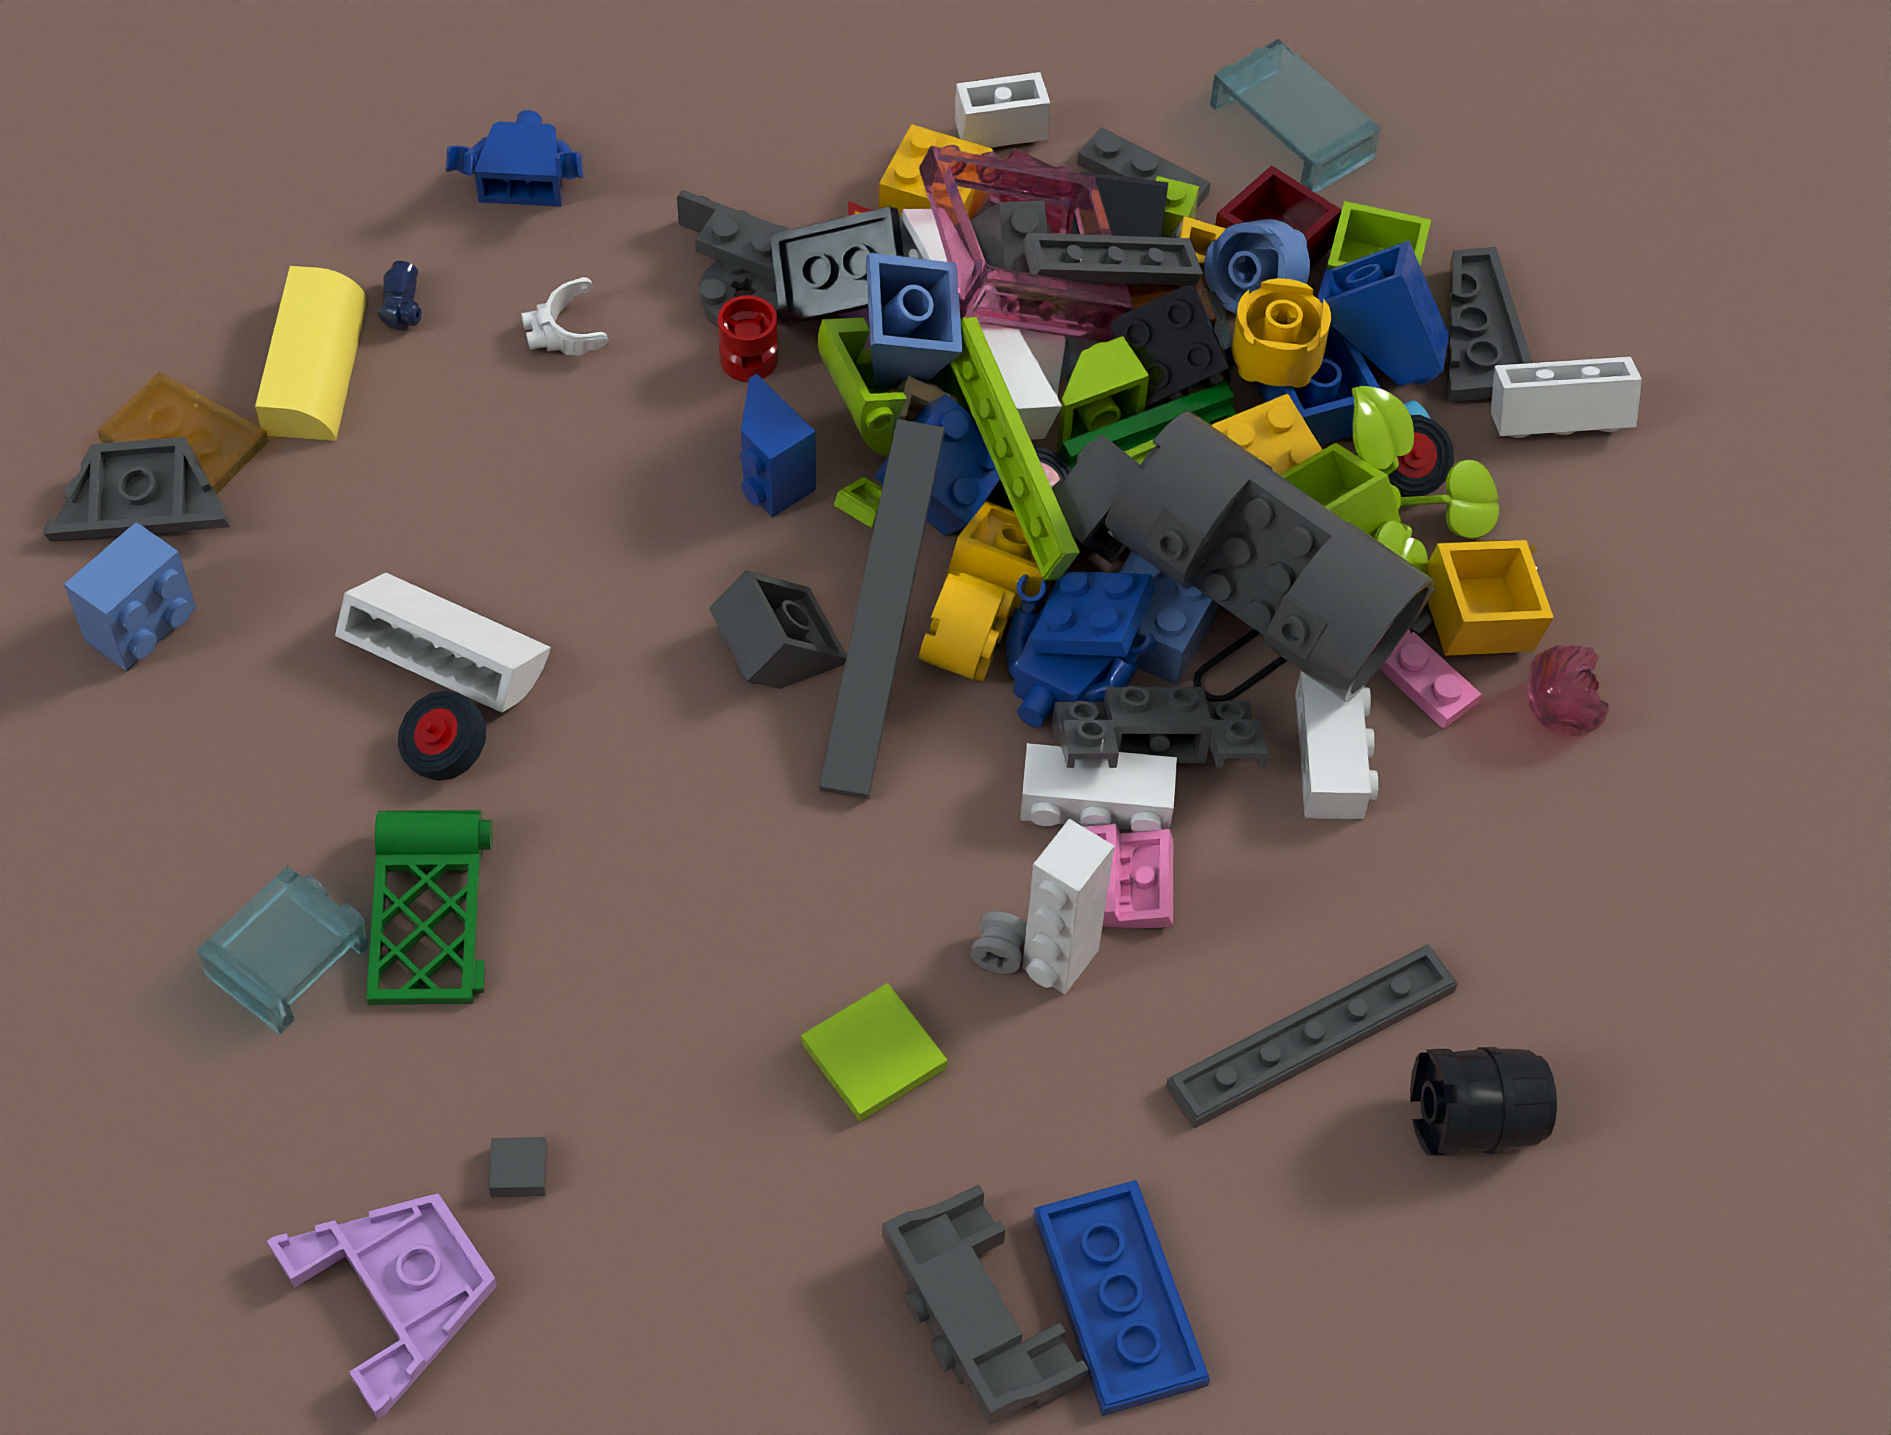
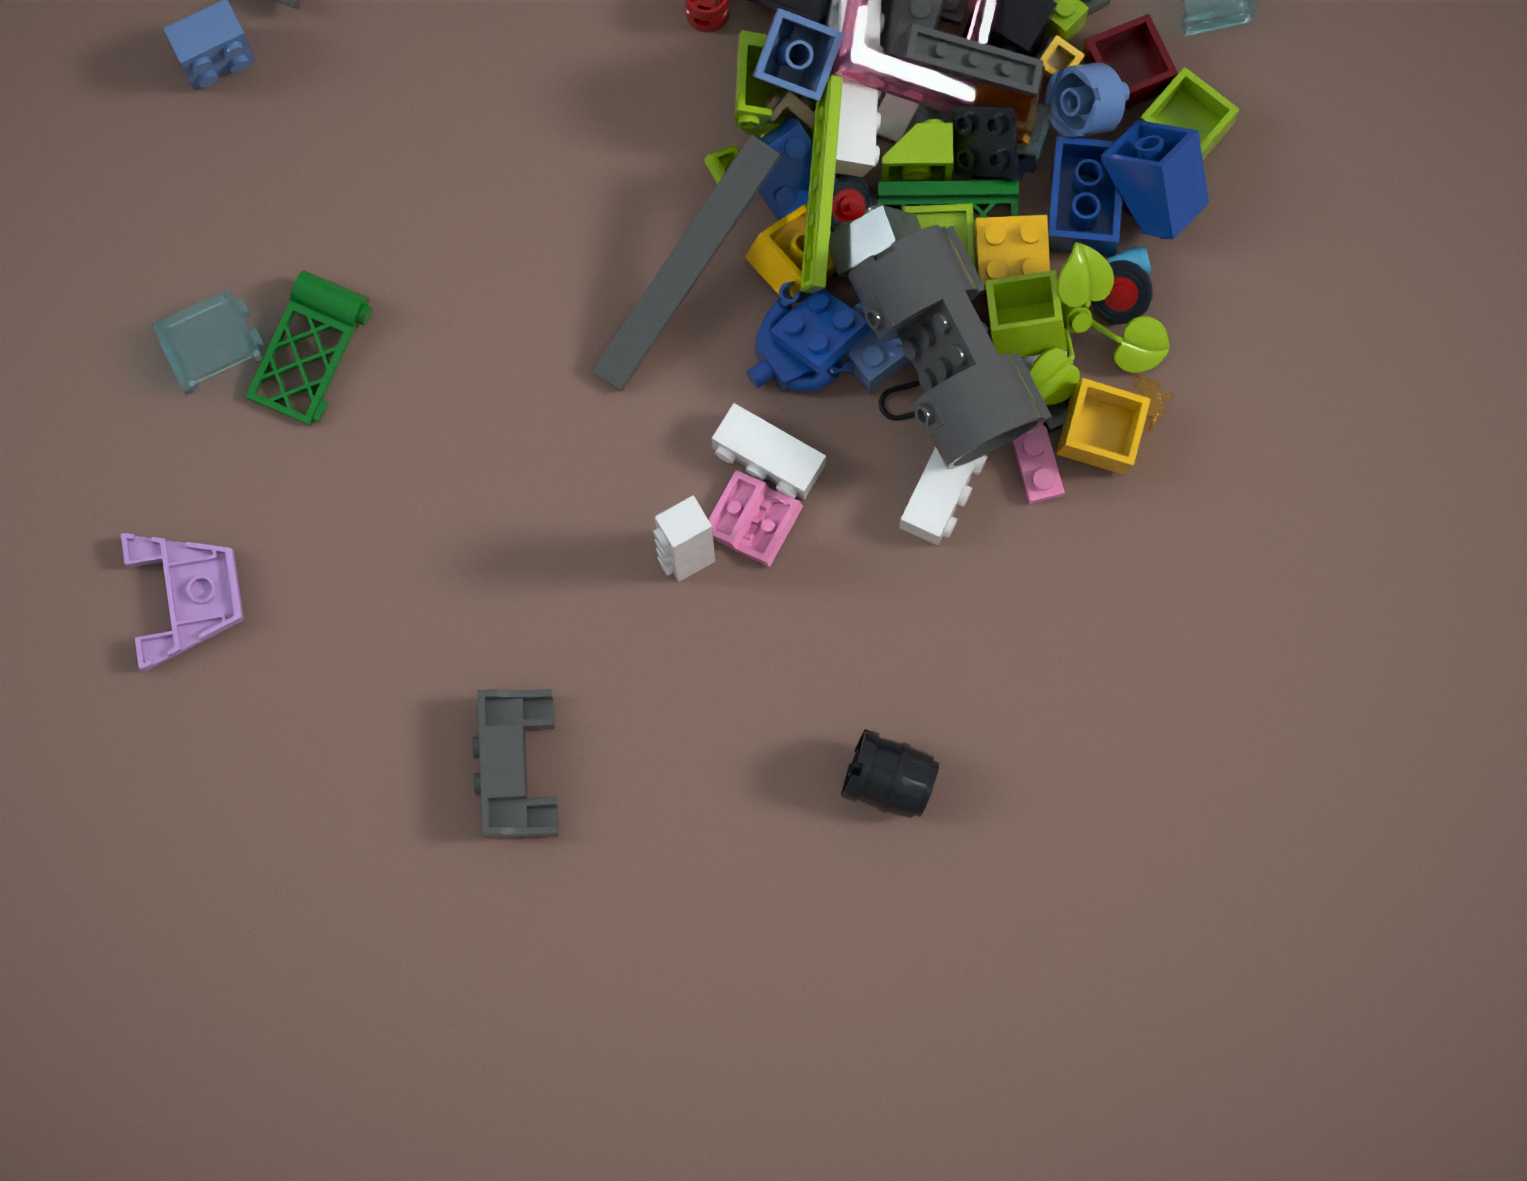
camera: 30 degrees right, 20 degrees up
(441, 641) = (397, 158): white brick -> none
(442, 735) = (366, 230): black wheel -> none
(518, 1167) = (289, 549): dark grey tile -> none
(776, 450) = (675, 107): blue slope -> none
(776, 631) = (618, 243): dark grey slope -> none
(874, 1052) = (537, 569): lime tile -> none
(966, 625) = (739, 296): yellow brick -> none
(999, 942) = (643, 532): light grey wheel -> none
(1120, 1297) = (606, 793): blue tile -> none
(1160, 724) = (826, 425): dark grey bracket -> none
(1280, 333) = (1049, 154): yellow brick -> none
(1310, 1036) = (817, 680): dark grey tile -> none
(1481, 324) = (1237, 213): dark grey wing -> none
(1565, 396) = (1258, 291): white brick -> none
(1565, 691) = (1117, 519): clear pink hair -> none

